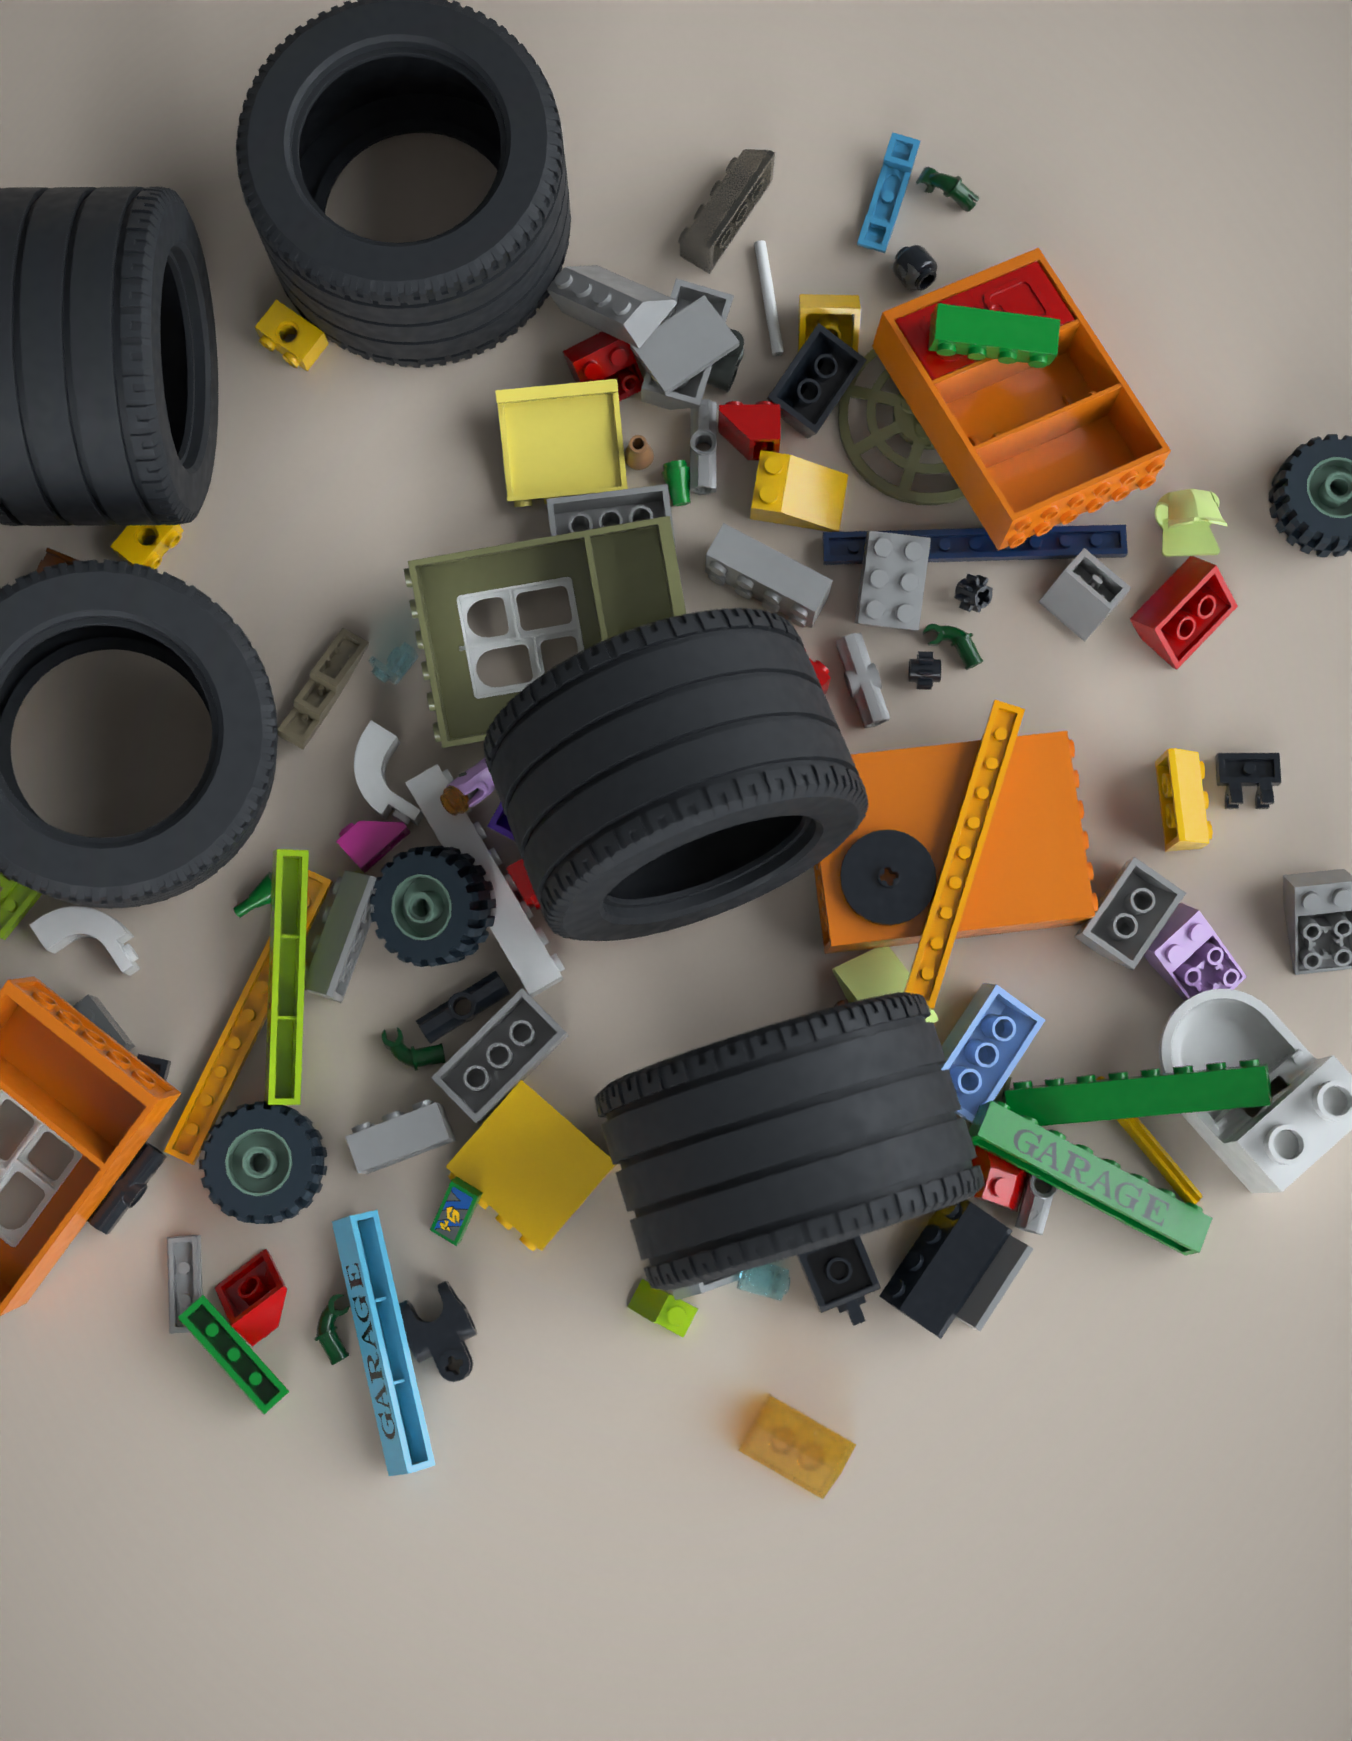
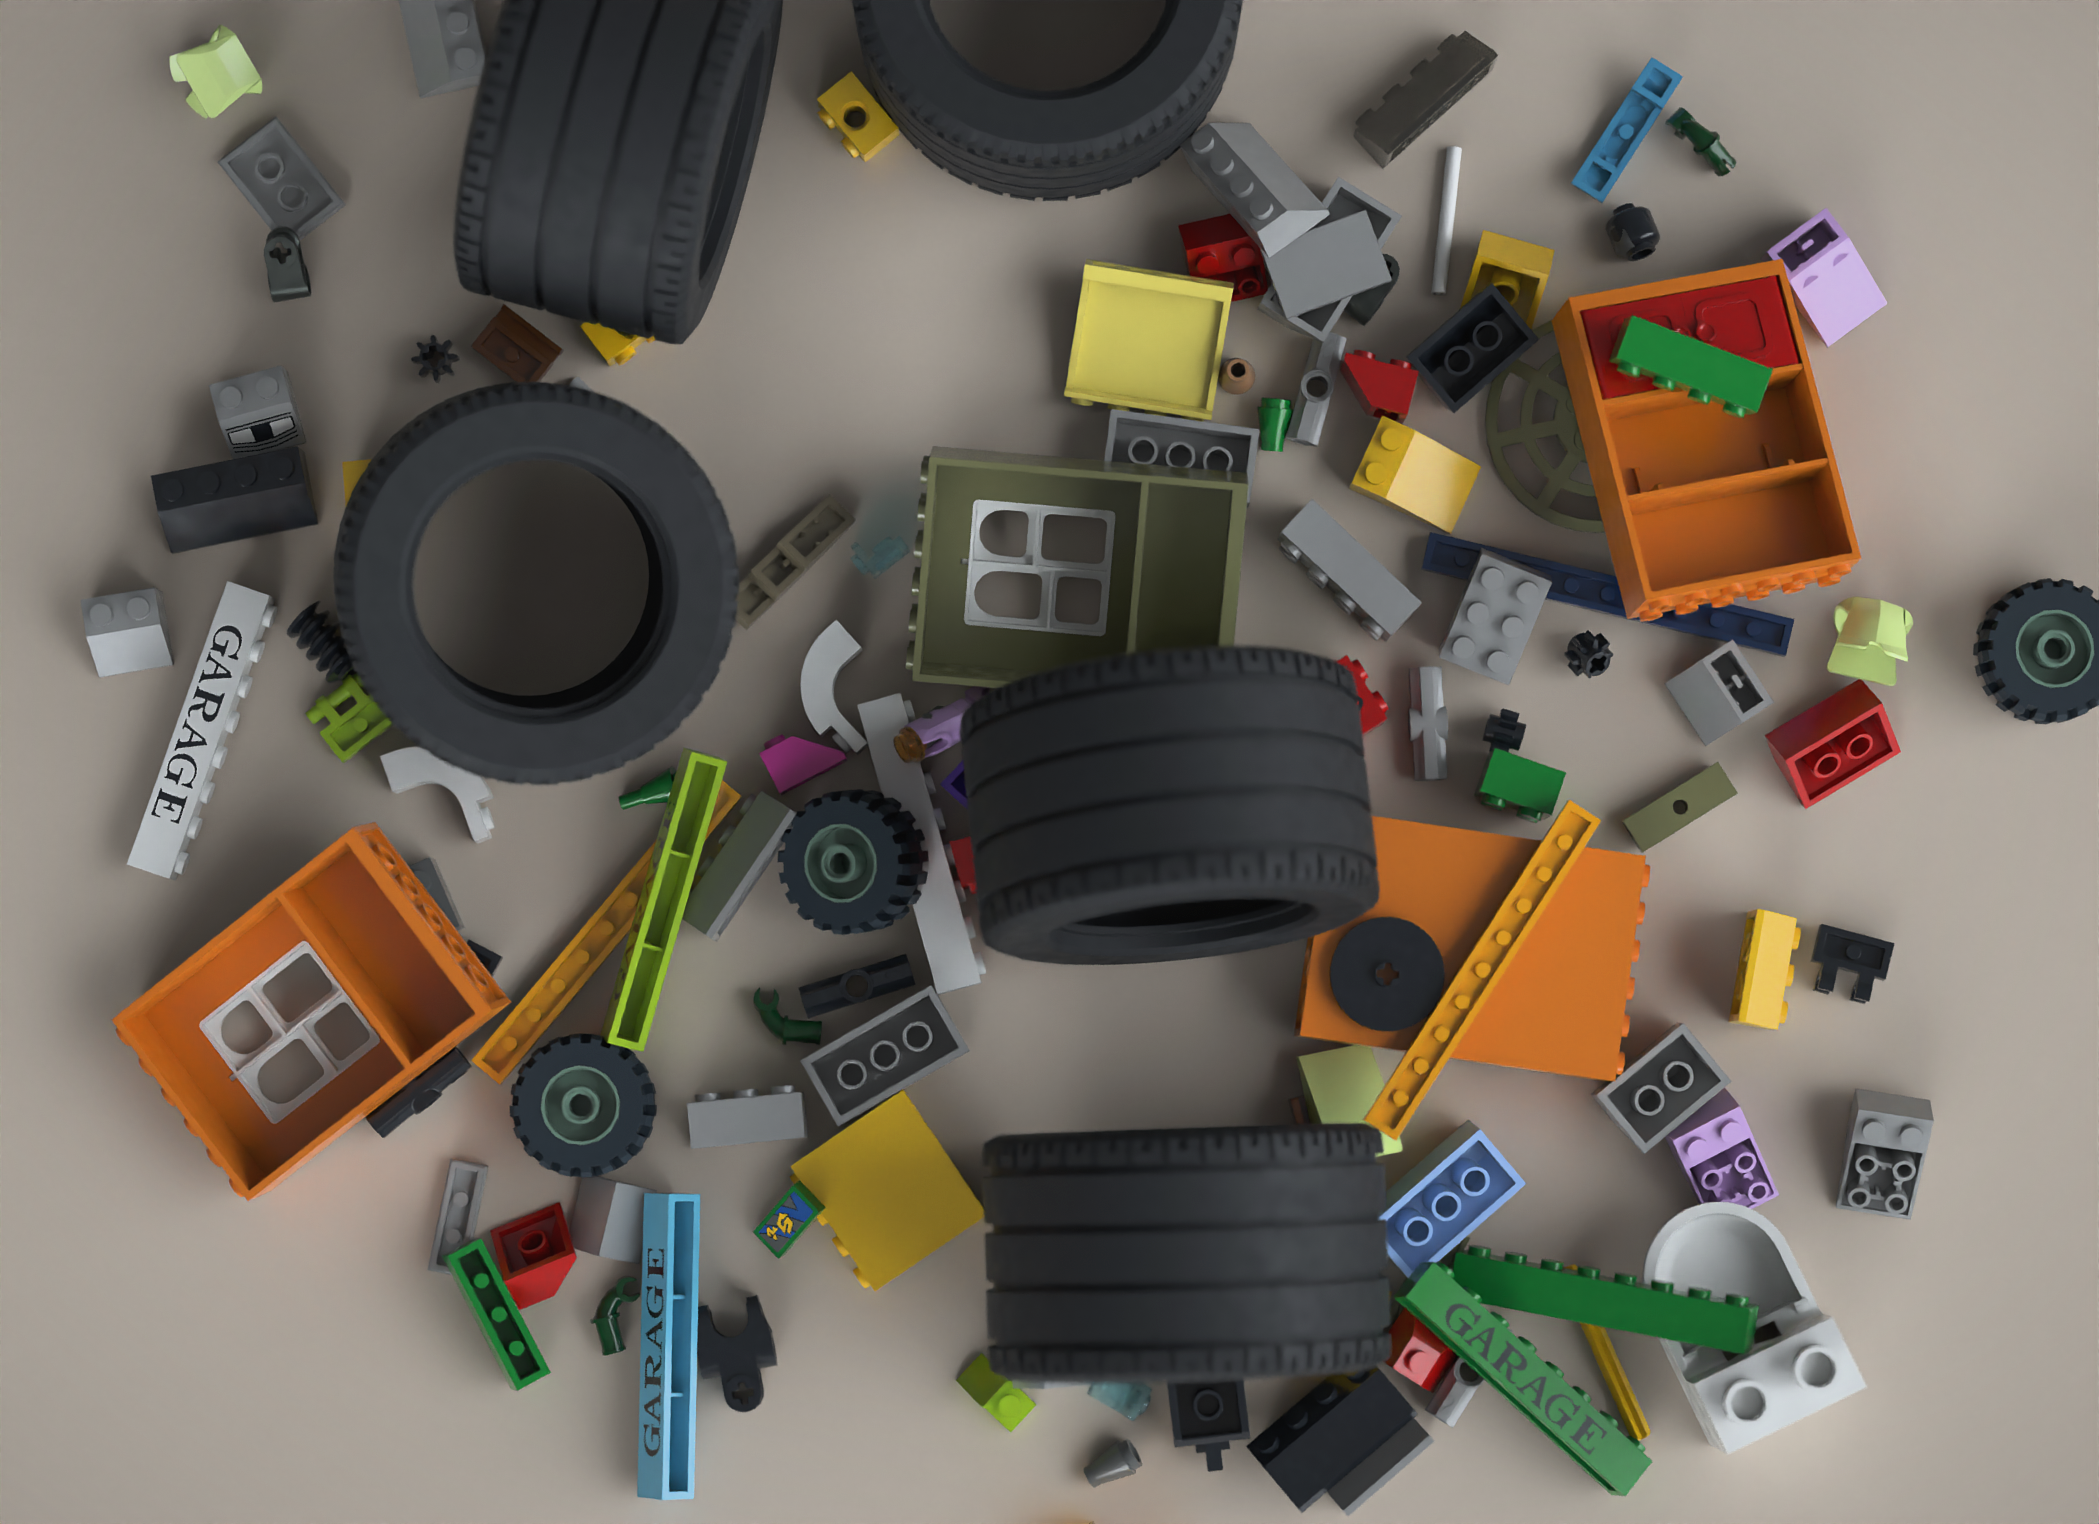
camera: 15 degrees right, 5 degrees up
(309, 1251) = (609, 1219): none -> light grey slope
(776, 1339) = (1115, 1463): none -> dark grey cone
(949, 706) = (1520, 785): none -> green brick
(960, 639) = (1558, 707): dark green piece -> none
(1077, 259) = (1827, 277): none -> lavender slope
(1089, 681) = (1697, 794): none -> olive tile

